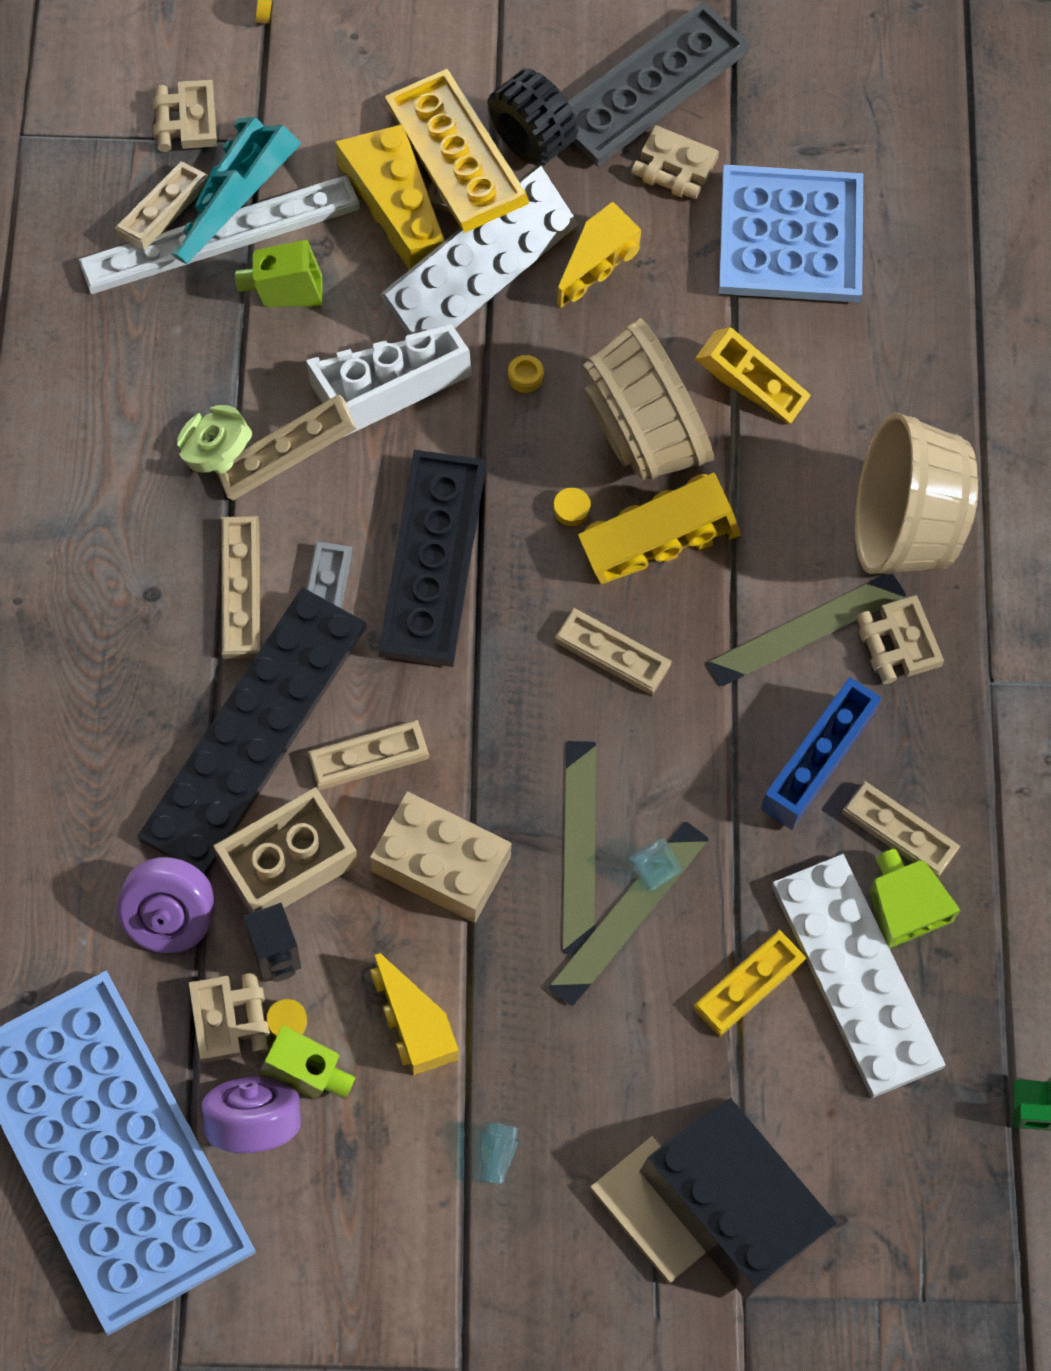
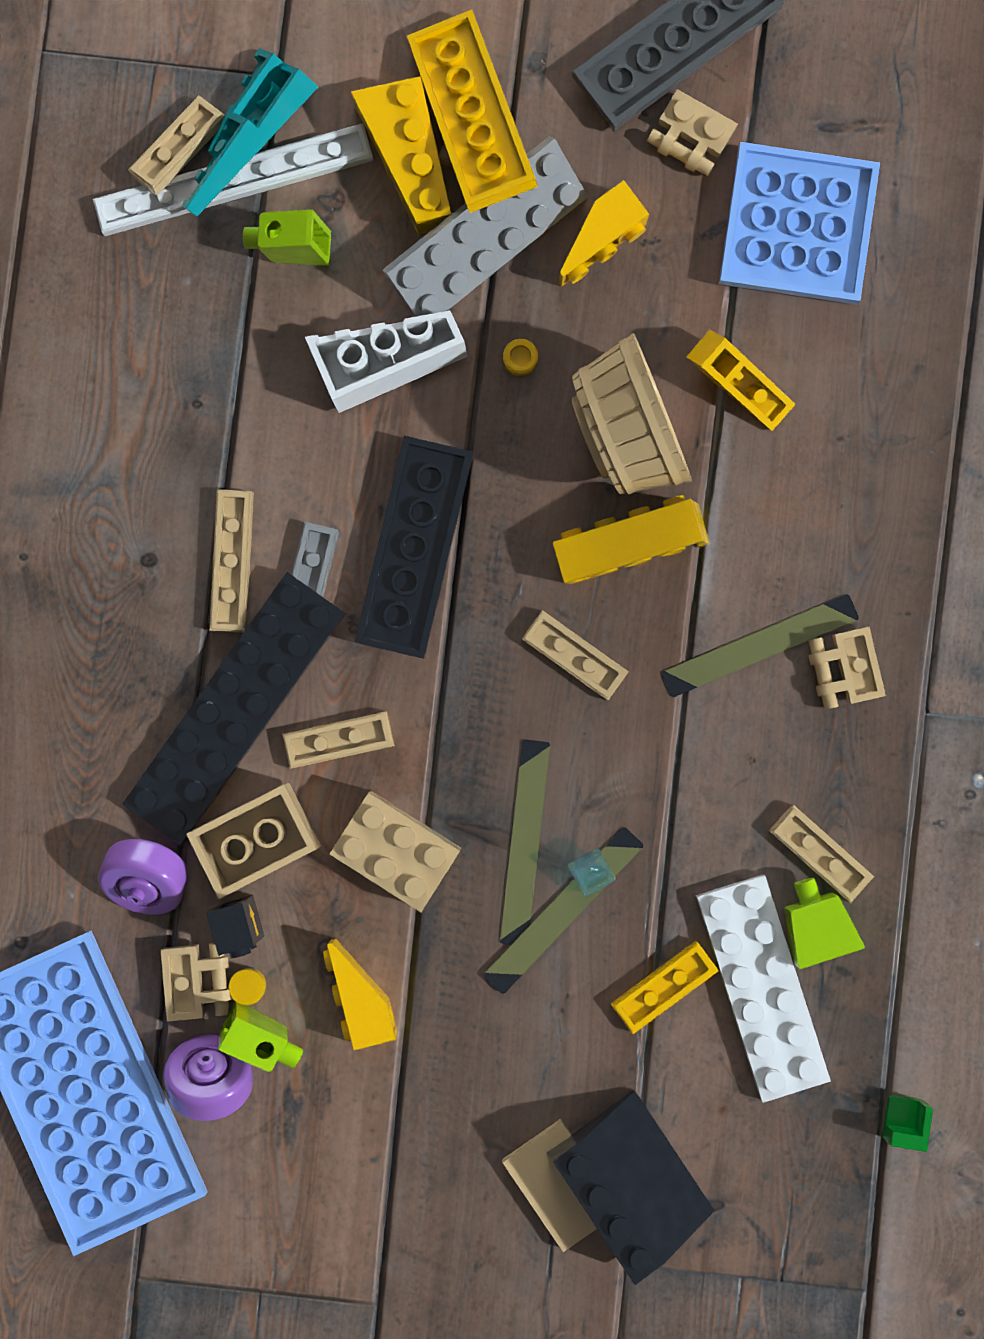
camera: 10 degrees right, 20 degrees up
(197, 115) = (216, 42): tan plate -> none
(229, 436) = (225, 420): yellowish green plate -> none
(288, 446) = (280, 427): tan tile -> none
(497, 1151) = (424, 1122): clear light blue cone -> none
(532, 117) = (552, 77): black tyre -> none
(572, 507) = (551, 503): yellow tile -> none
(820, 753) = (757, 781): blue brick -> none
(914, 497) = (881, 541): tan piece -> none

